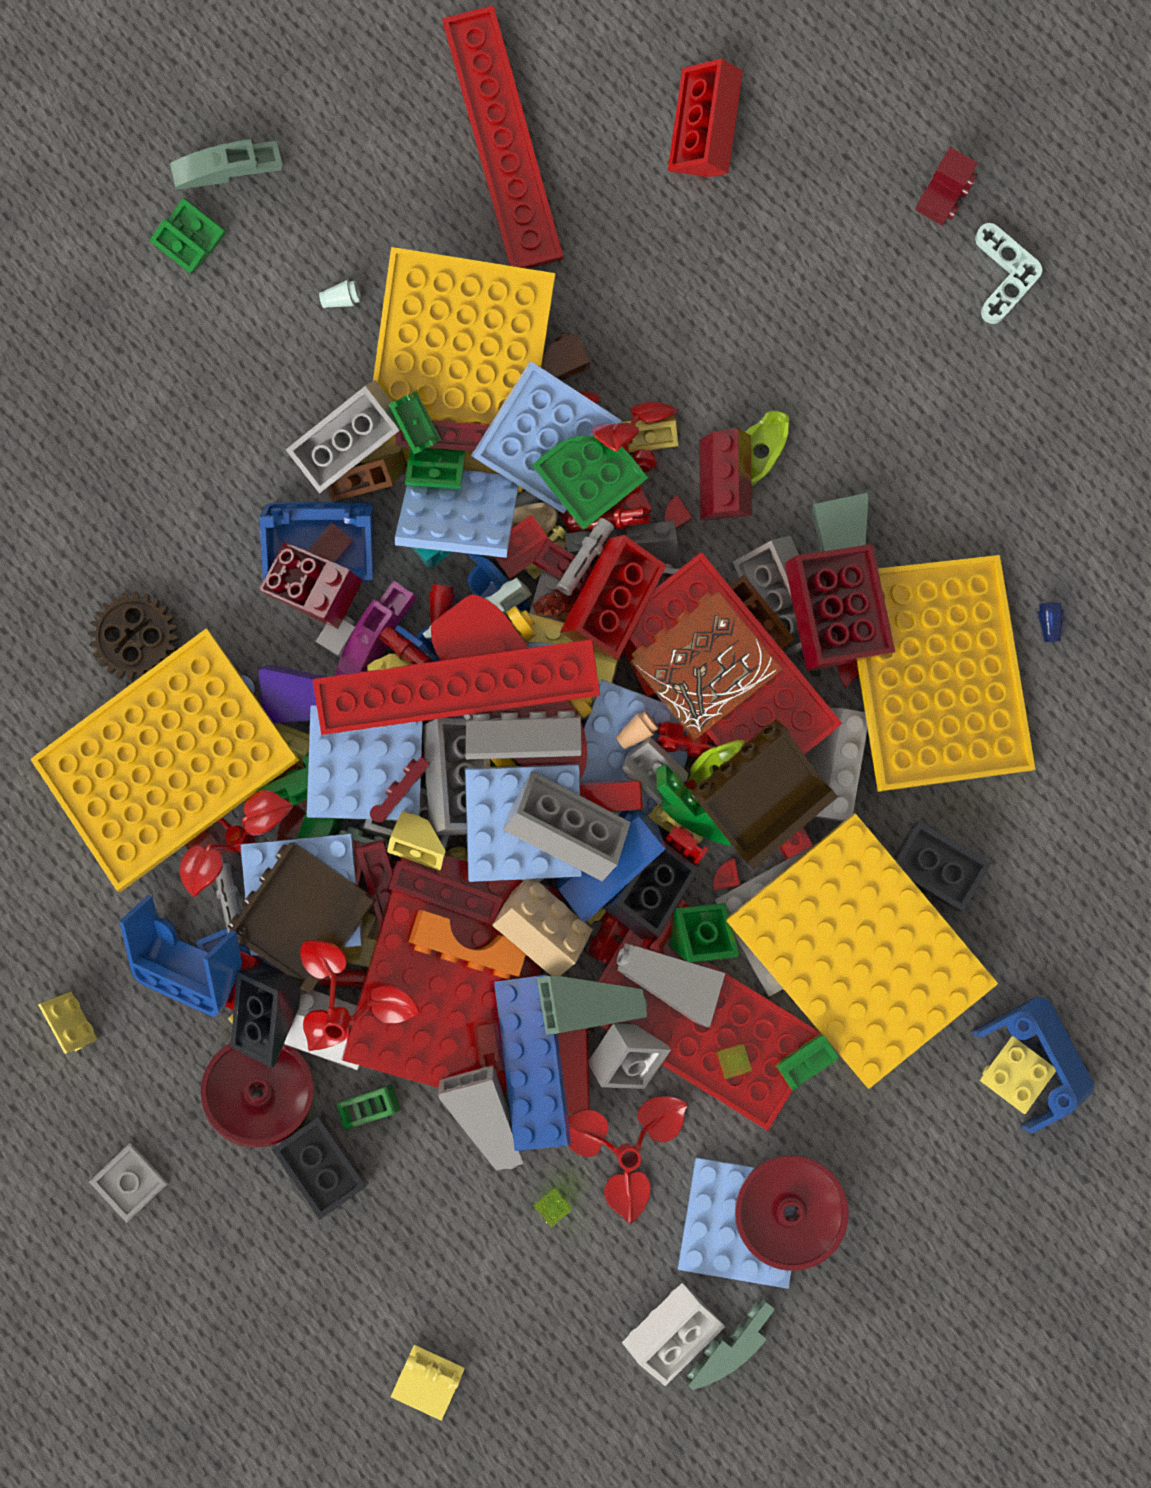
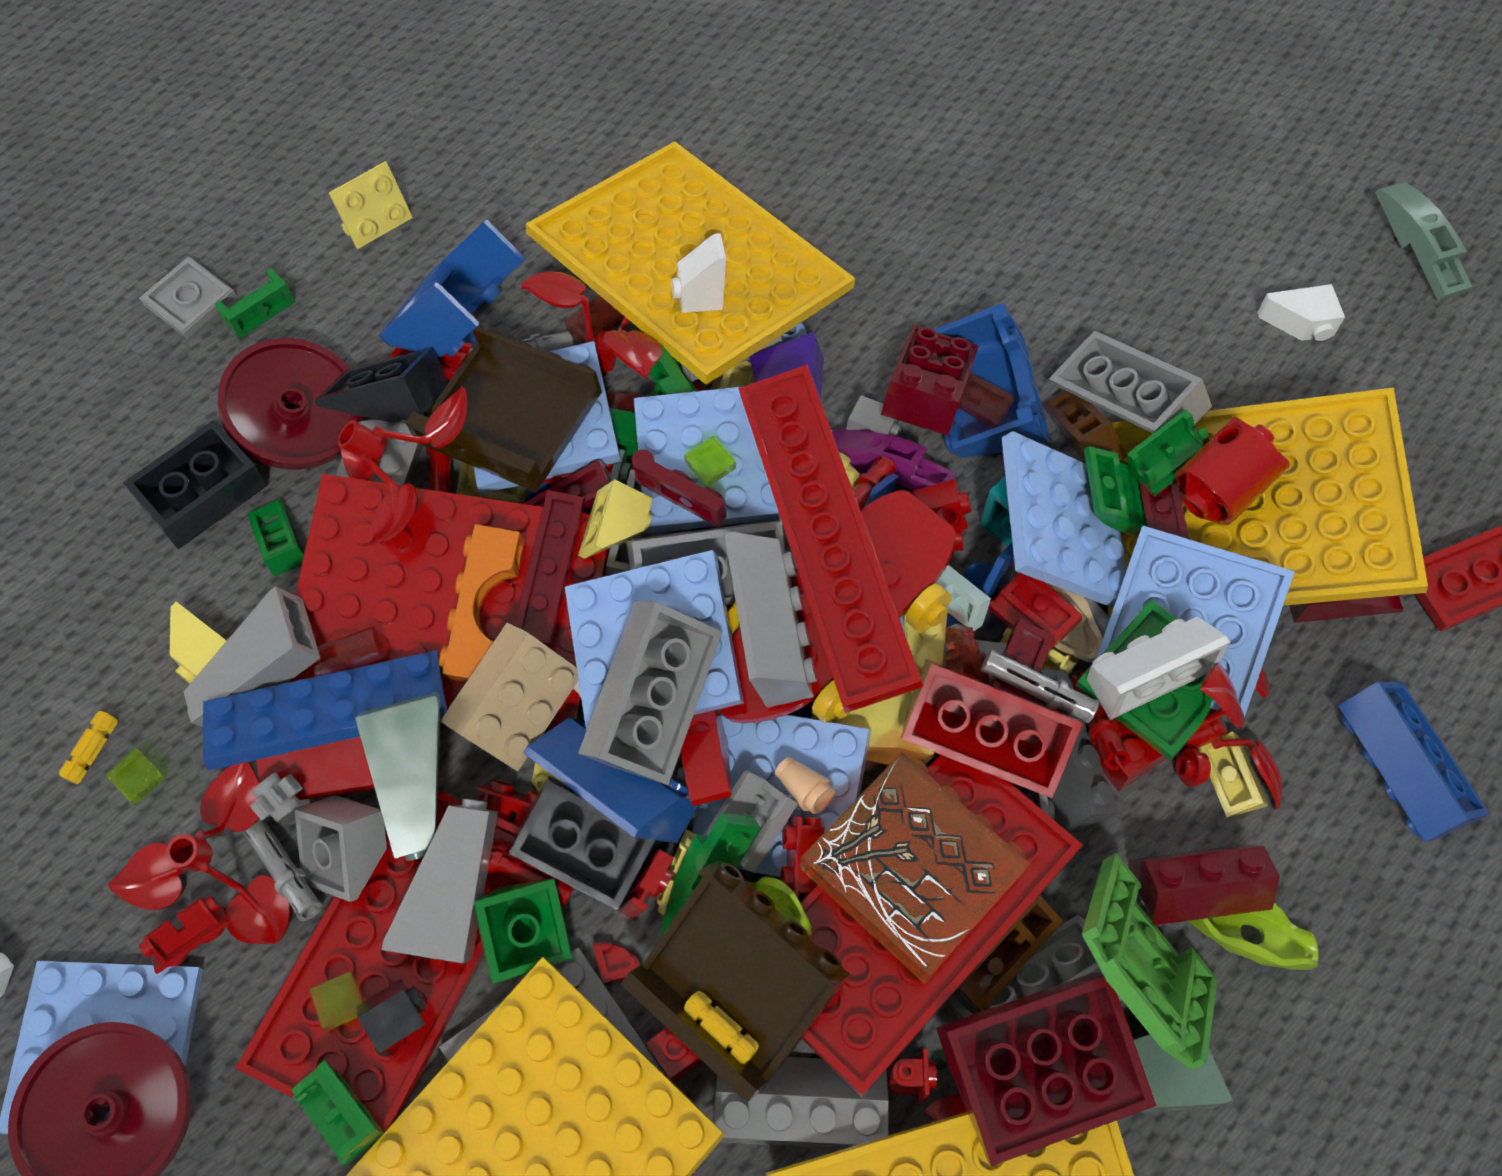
camera: 85 degrees right, 20 degrees down
(118, 618) = (836, 217): dark brown gear -> none
(147, 1124) = (256, 306): none -> green hinge
(188, 236) = (1323, 218): green slope -> none
(208, 751) = (701, 277): none -> white slope
(282, 277) = (1304, 312): none -> white slope
(341, 295) = (1305, 377): light aqua cone -> none
(379, 764) = (710, 461): none -> clear neon green plate
(427, 597) = (946, 502): none -> red brick
(441, 384) = (1230, 472): none -> red cylinder
(458, 1164) = (191, 642): none -> light yellow slope
(524, 1243) = (88, 747): none -> yellow axle
(565, 357) = (1305, 644): reddish brown slope -> none
(587, 475) = (1156, 665): none -> white slope
(592, 1098) = (276, 797): none -> light grey gear
(637, 1099) = (290, 880): none -> light grey pin
(657, 309) = (1412, 760): none -> blue slope
(669, 1157) = (201, 923): none -> red hinge
(677, 512) = (1128, 825): red tile -> none
(750, 1022) = (391, 1014): none -> black brick
(787, 528) = (1162, 988): none -> bright green wedge
(788, 807) = (721, 1027): none -> yellow axle
(830, 688) = (914, 1077): none -> red hinge

